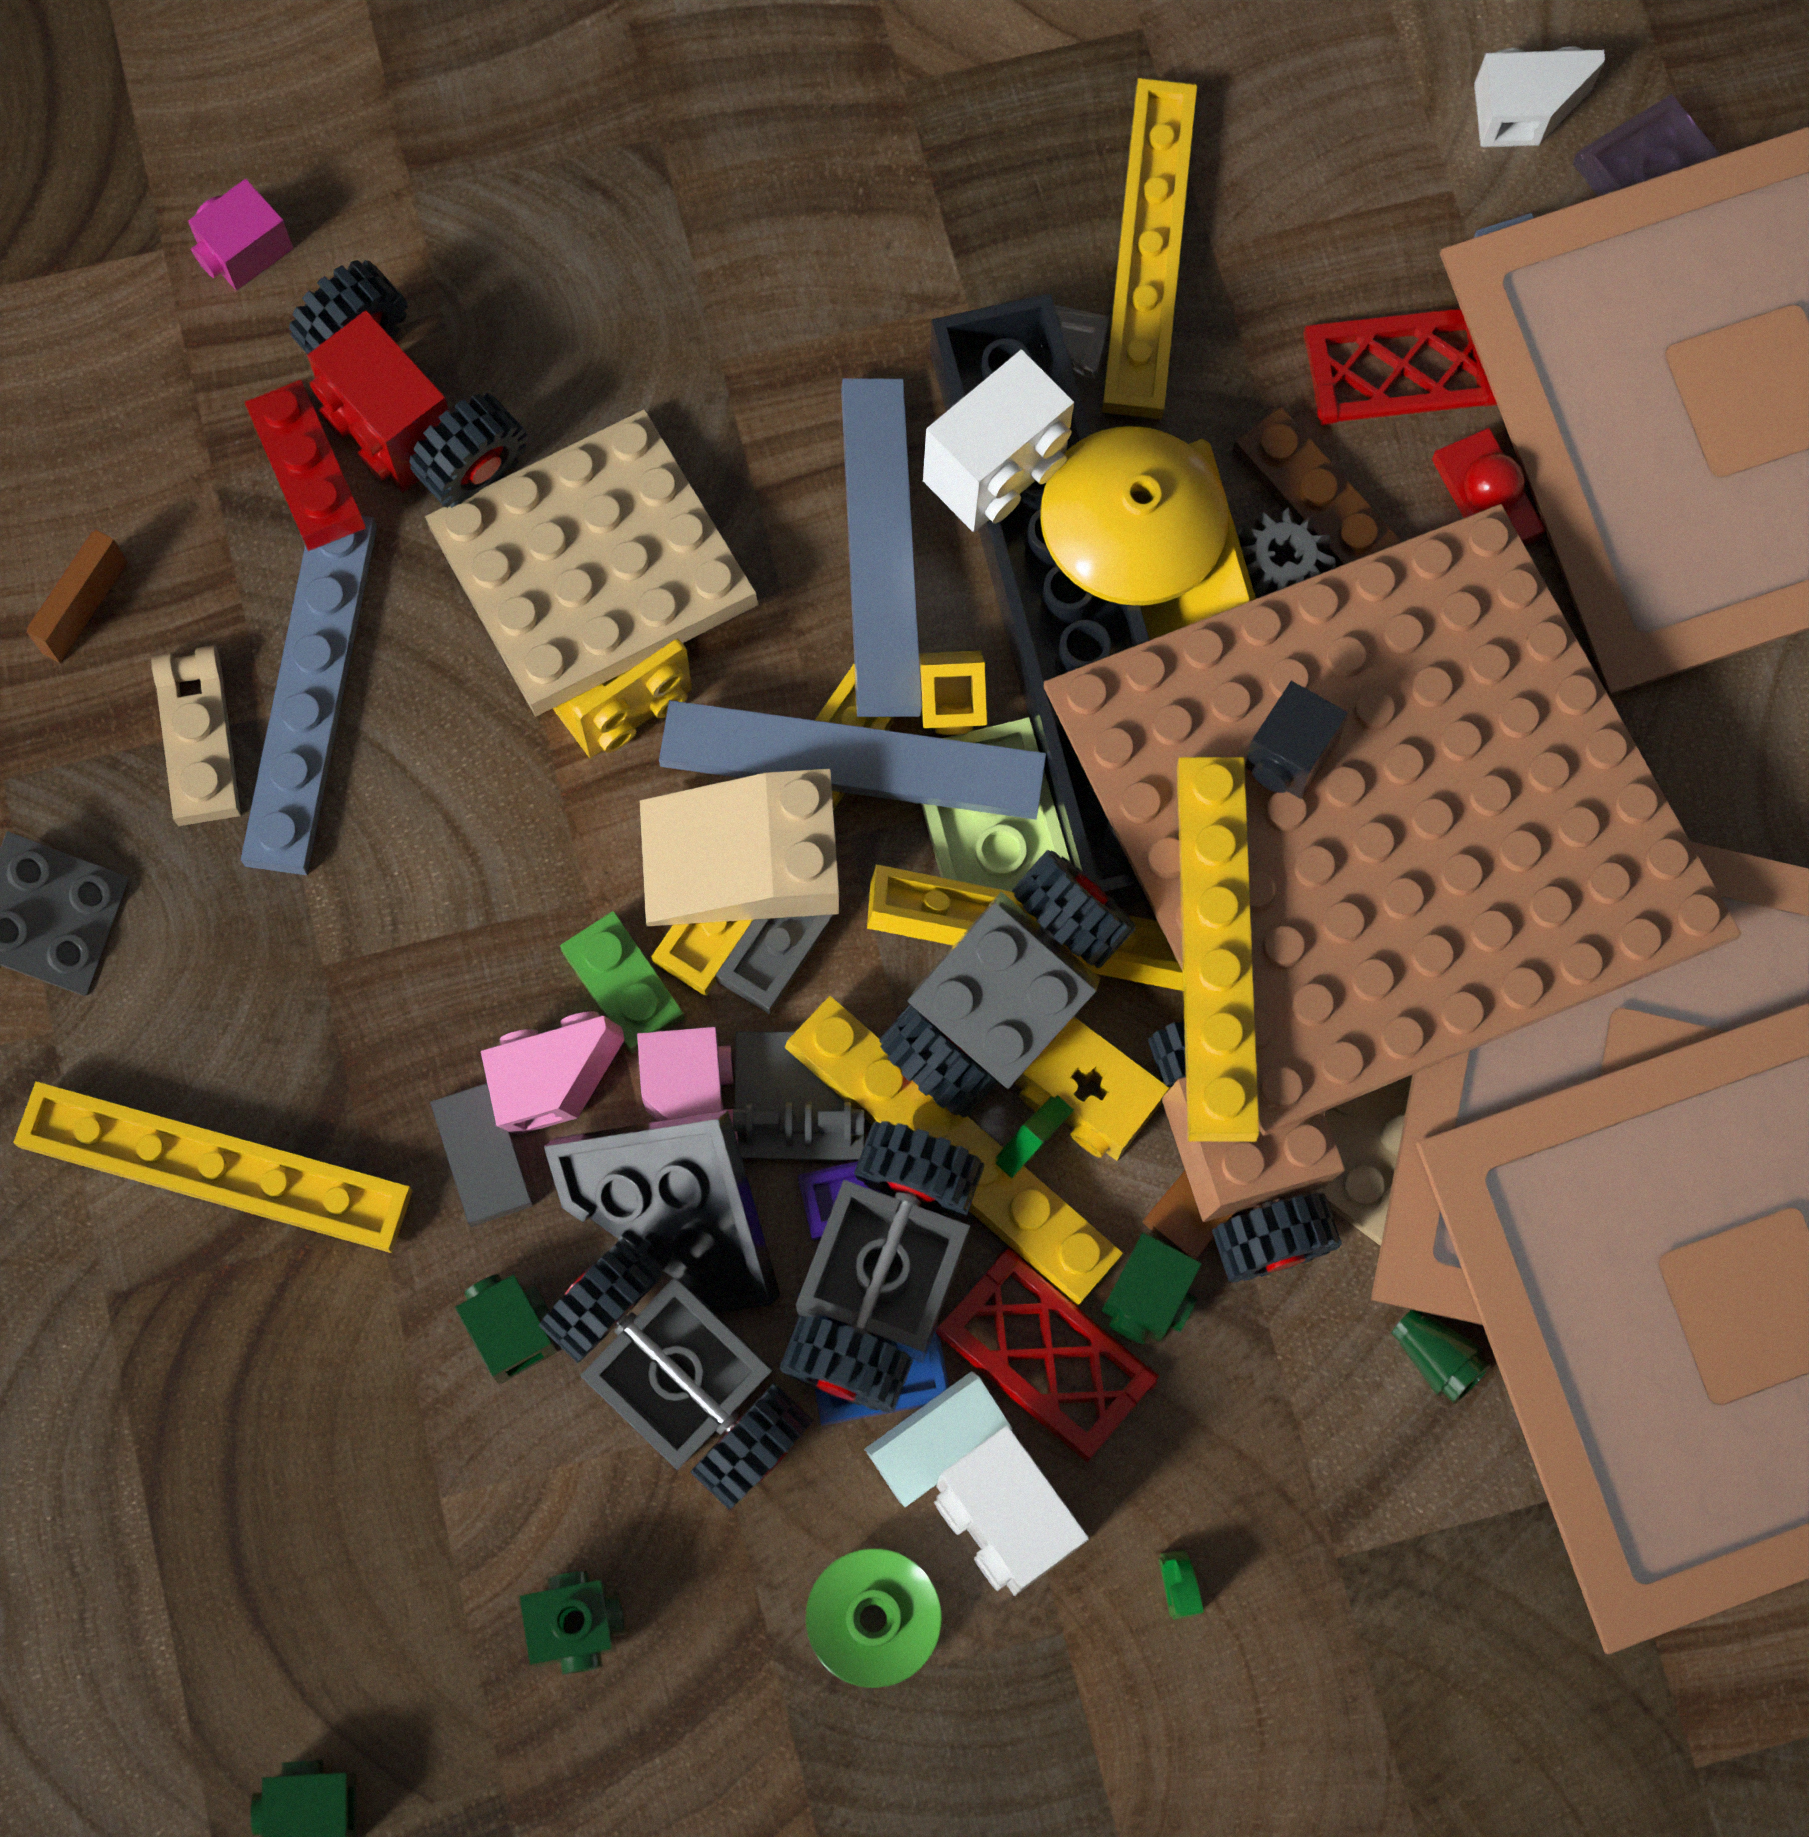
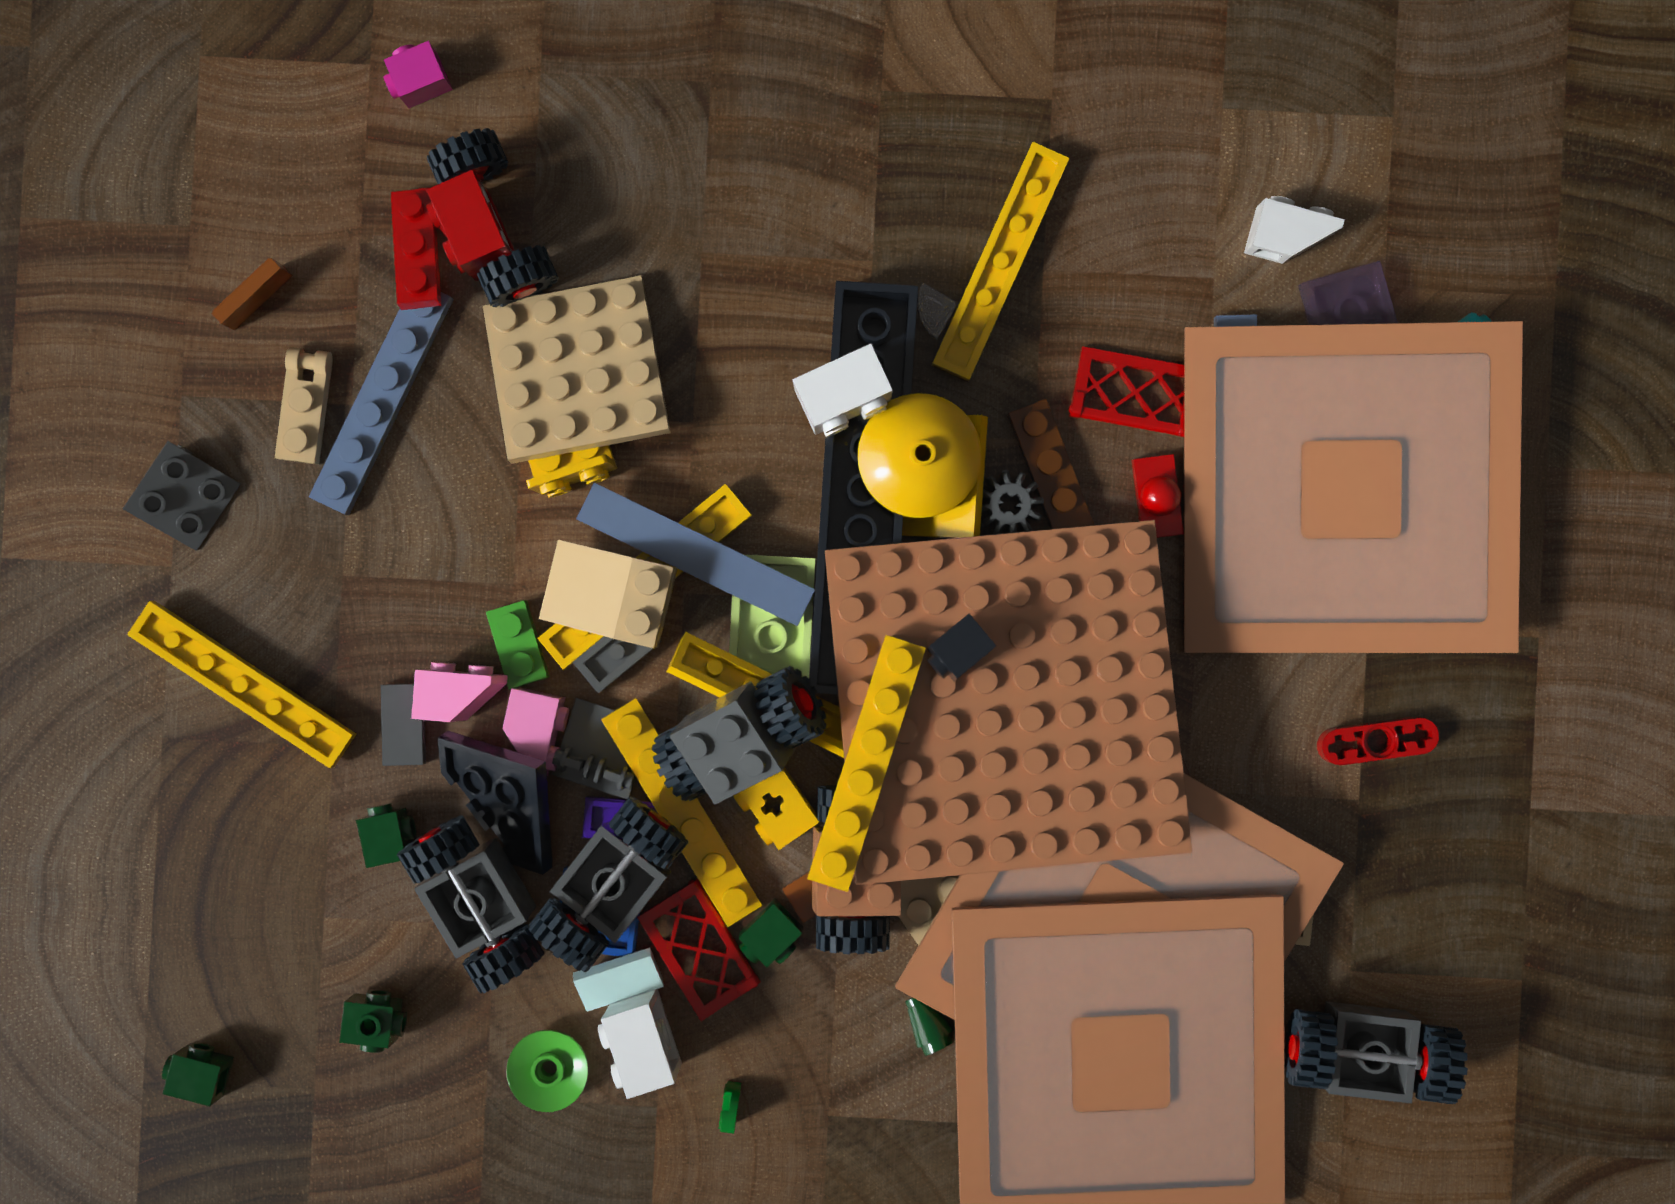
camera: 25 degrees right, 15 degrees up
(880, 549) = (759, 416): sand blue tile -> none
(953, 691) = (772, 528): yellow brick -> none
(1033, 1135) = (728, 825): green tile -> none

